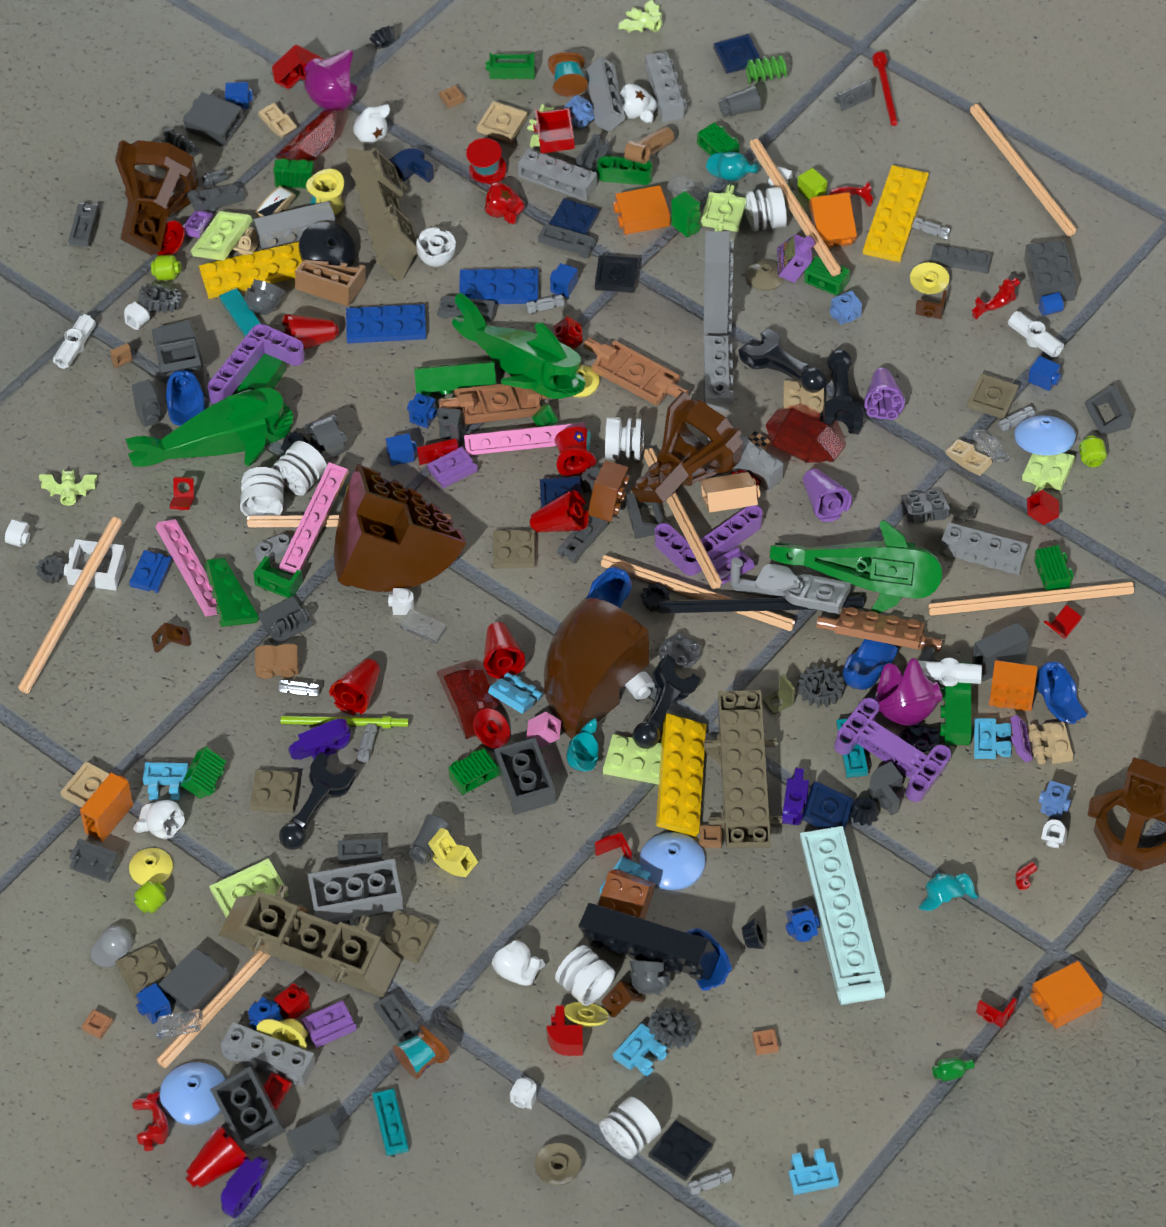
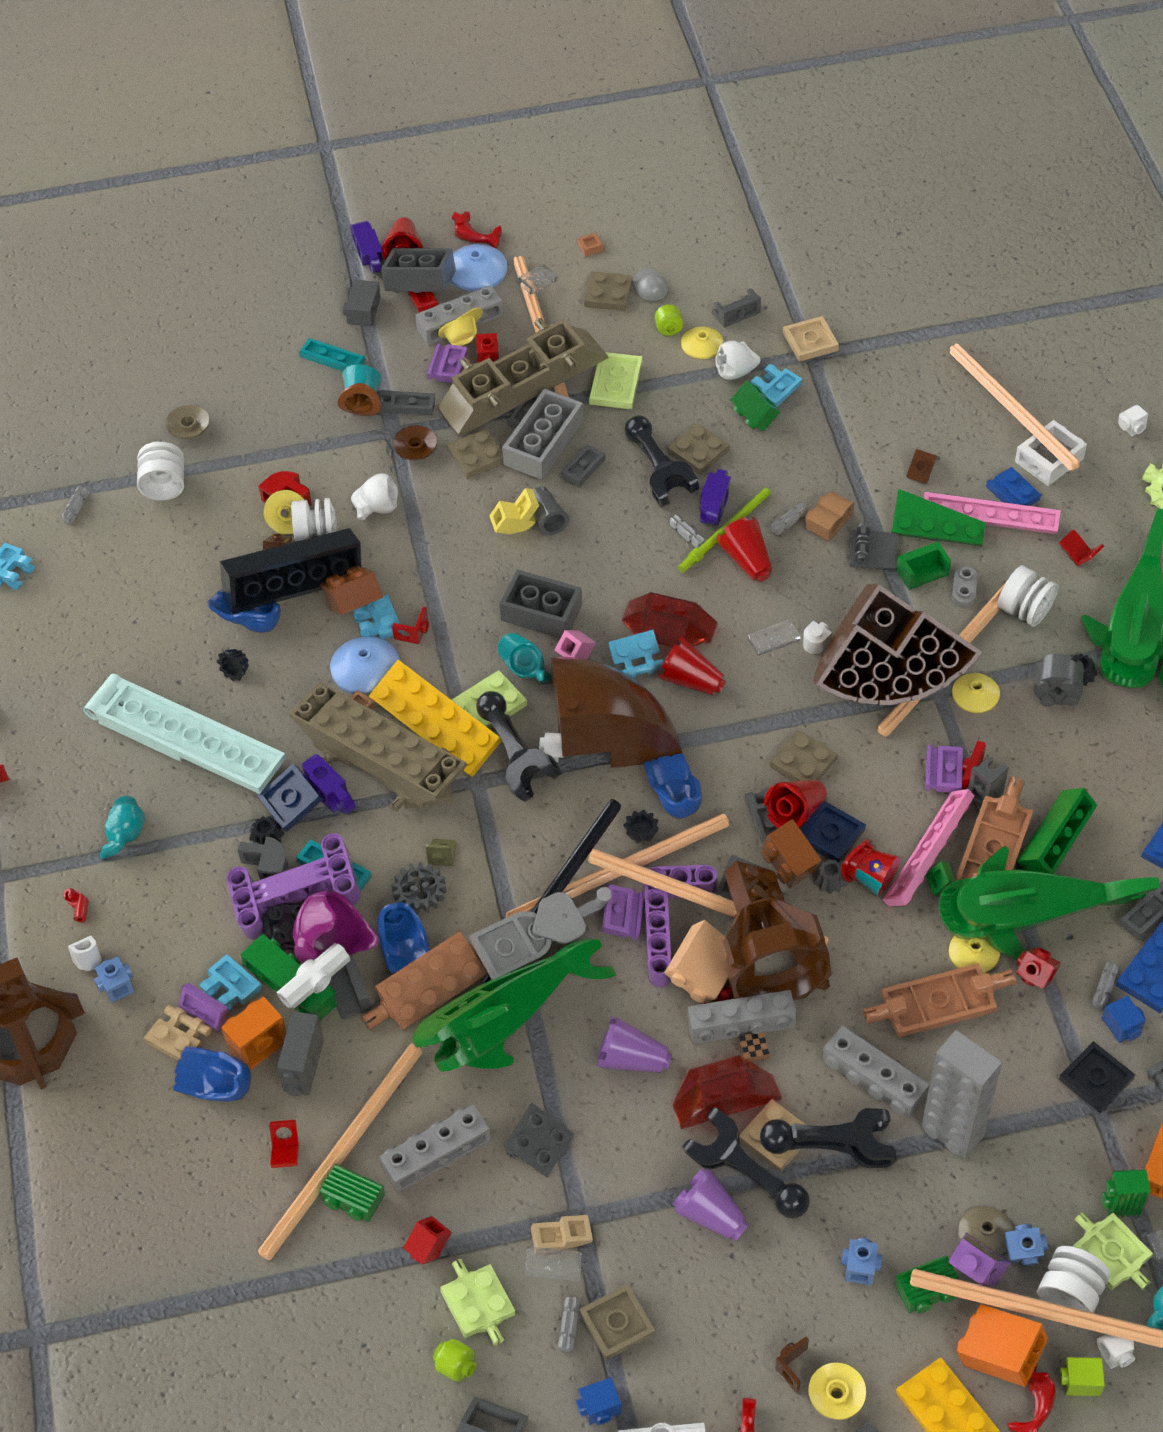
camera: 130 degrees right, 0 degrees up
(50, 569) = (1072, 420): dark grey piece -> none
(106, 807) = (775, 327): orange brick -> none
(153, 1003) = (571, 276): blue brick -> none
(194, 981) = (565, 301): dark grey brick -> none
(263, 1010) = (492, 323): blue brick -> none
(300, 467) = (1034, 637): white wheel -> none
(313, 518) = (966, 619): bright pink plate -> none
(401, 449) = (1002, 739): blue brick -> none
(422, 410) = (1038, 783): blue brick -> none
(434, 972) = (415, 442): none -> reddish brown dish
(473, 771) = (586, 574): green brick -> none
(491, 728) = (606, 613): red dish -> none
(523, 1093) = (265, 439): white plate -> none
(623, 438) = (850, 916): white wheel -> none
(636, 1046) = (226, 526): medium azure plate -> none
(672, 1027) = (209, 543): dark grey gear -> none
(680, 1150) = (118, 505): black plate -> none
(682, 649) = (565, 807): flat silver dish -> none
(762, 244) = (1018, 1253): none -> medium blue brick
(765, 1042) = (142, 615): nougat tile -> none
(802, 923) = (206, 699): blue brick -> none
(962, 514) = (498, 1168): clear smoke arm -> none
(1045, 435) = (506, 1343): light blue dish -> none

